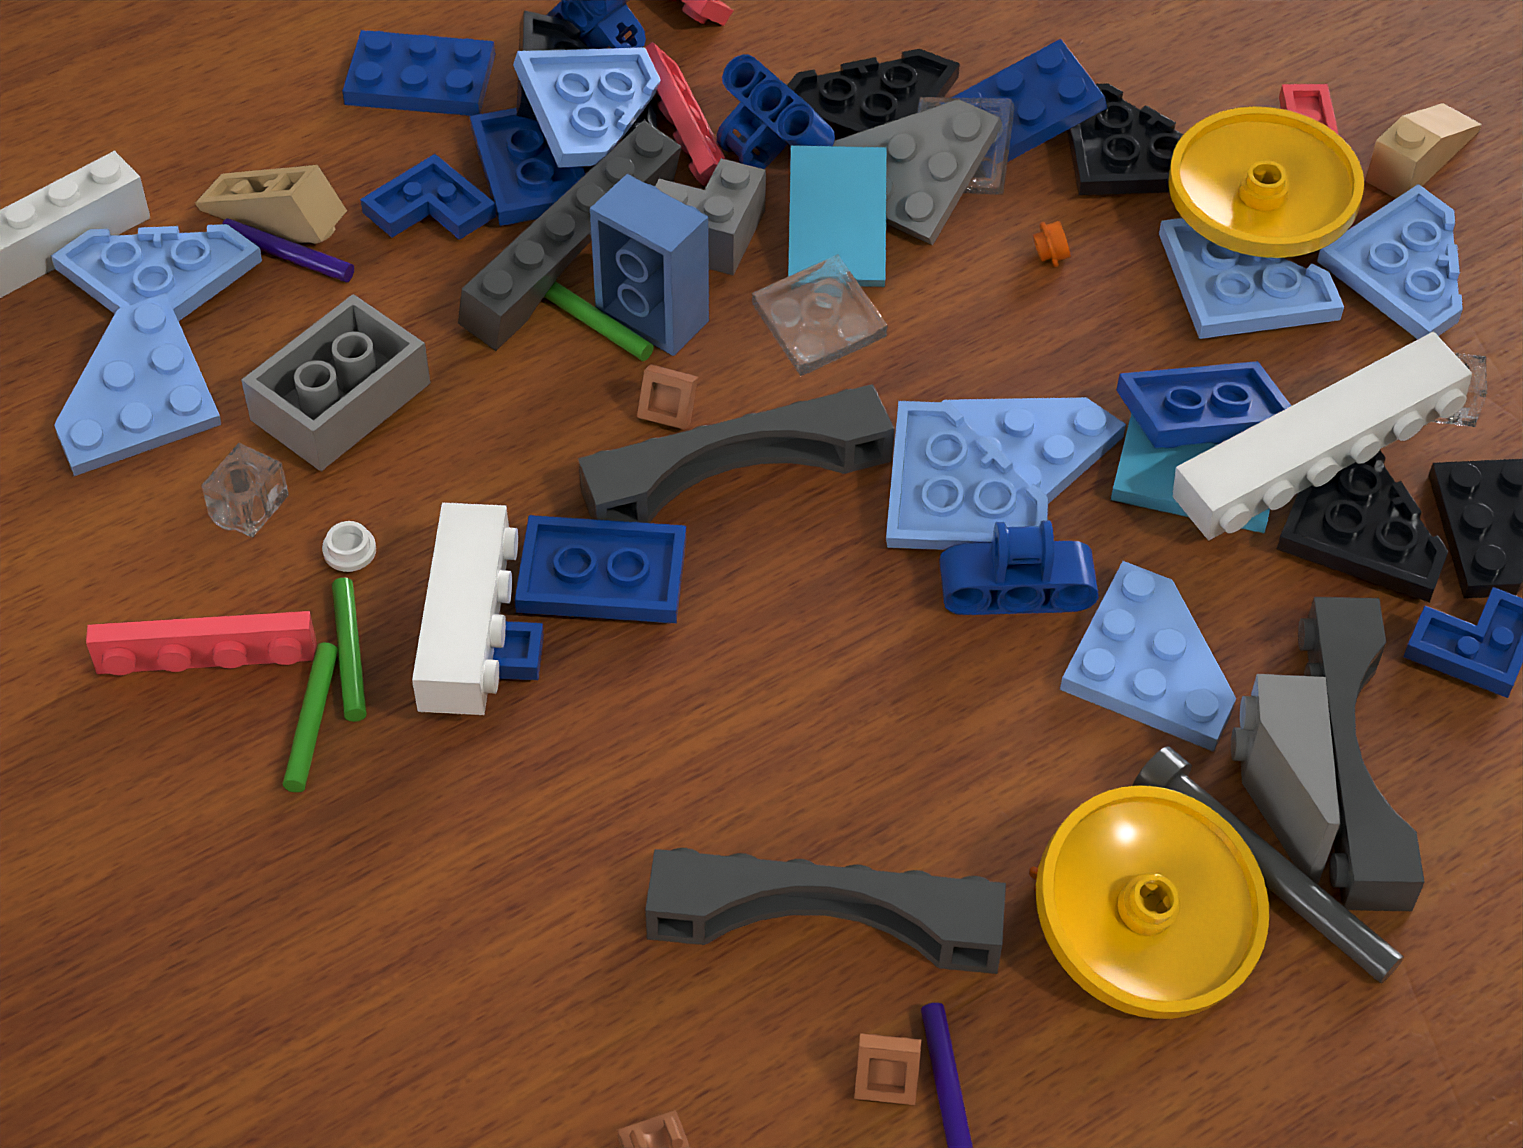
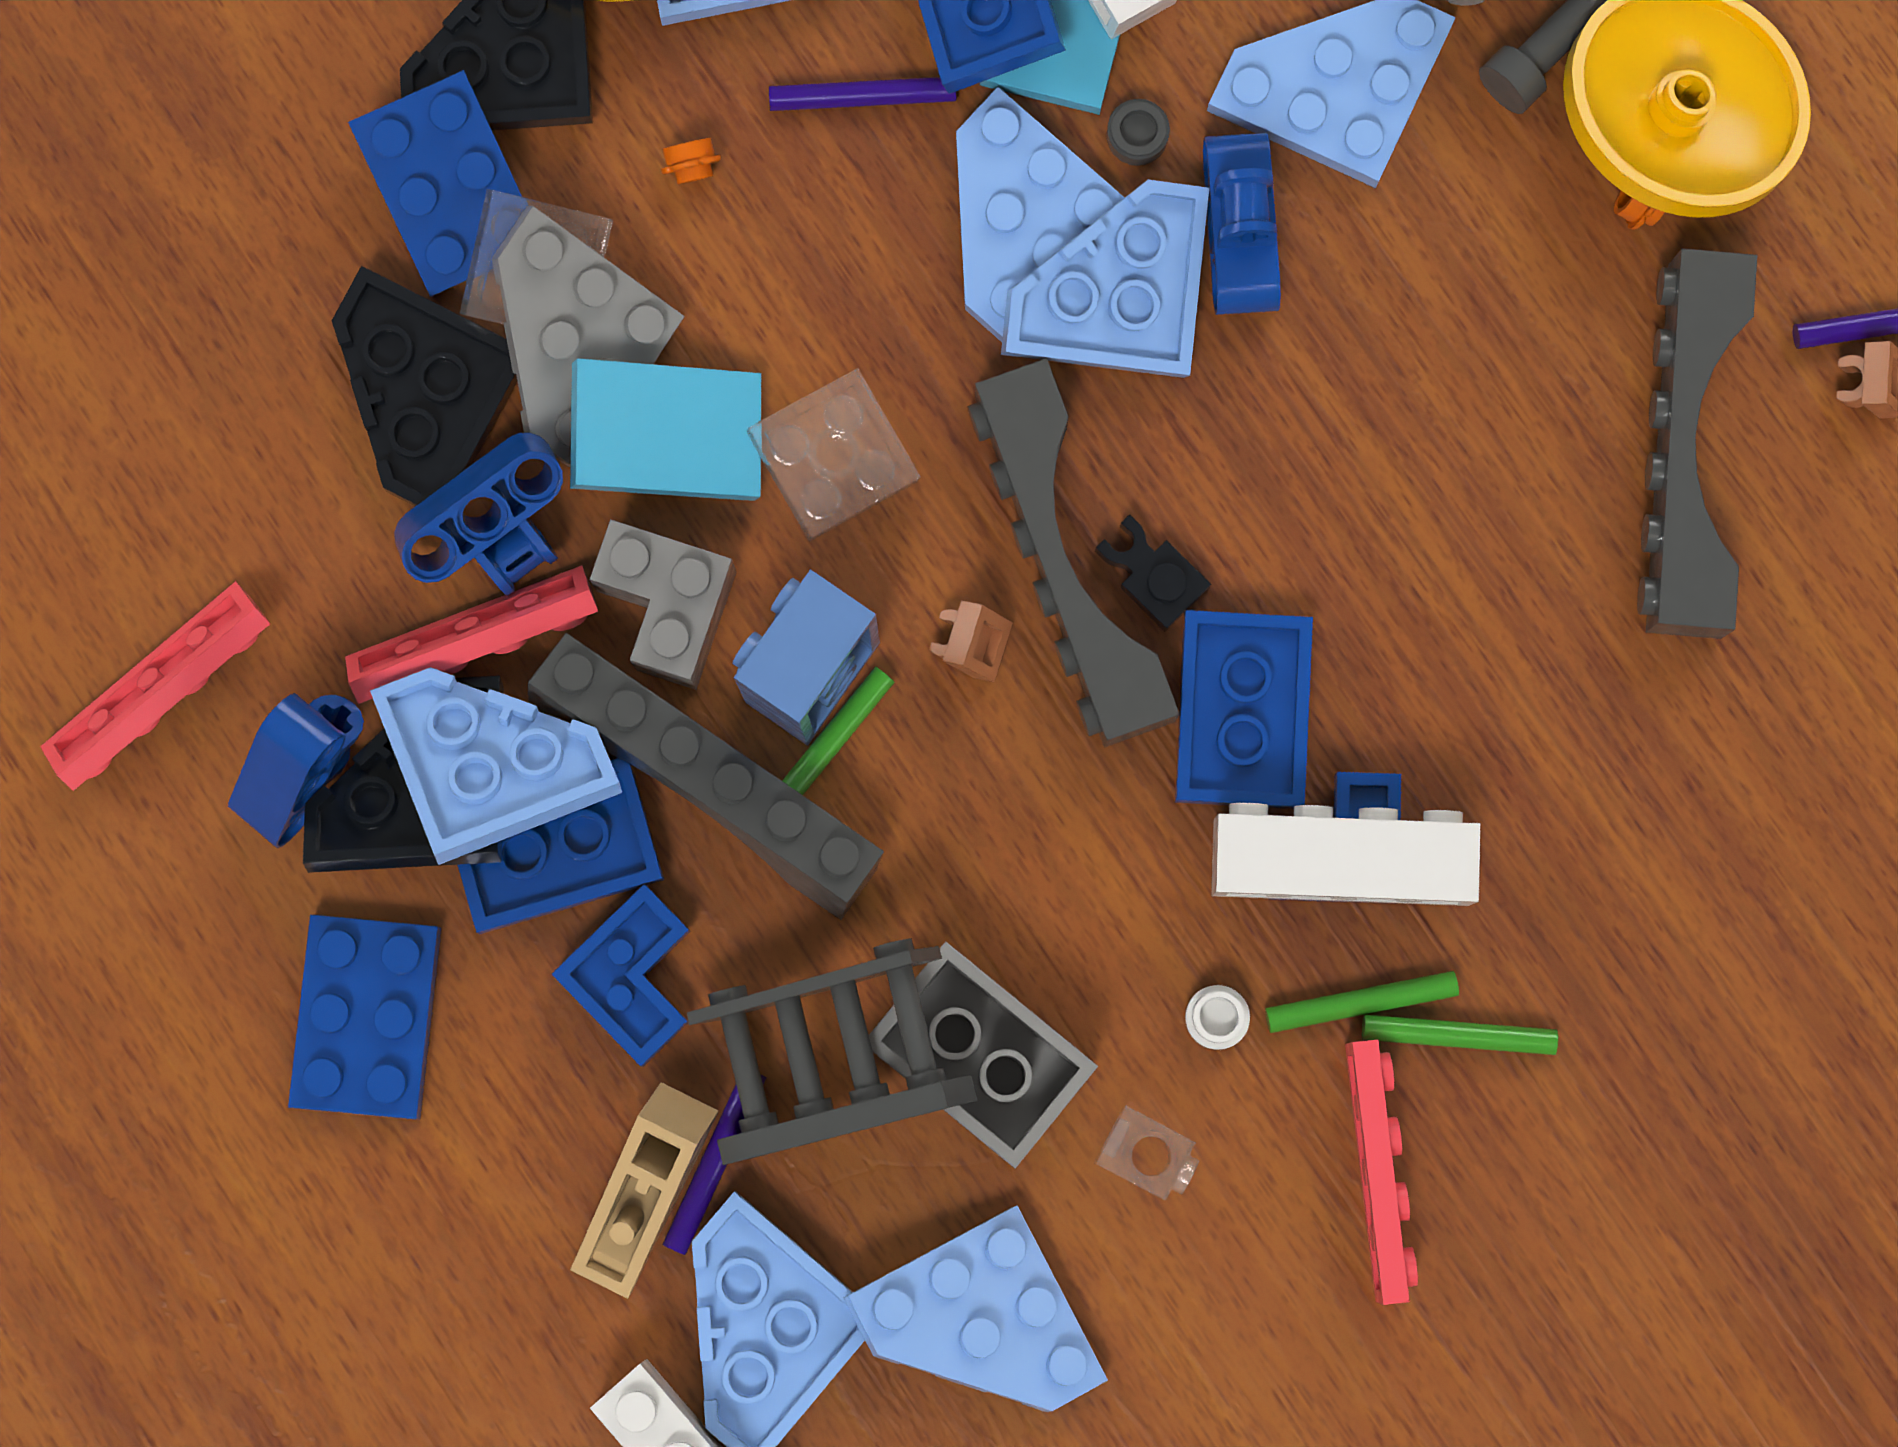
camera: 90 degrees left, 30 degrees up
(347, 278) = (870, 1100): none -> dark grey fence
(719, 524) = (1159, 579): none -> black plate
(1096, 520) = (1138, 132): none -> dark grey tile
(1113, 341) = (858, 94): none -> dark purple bar

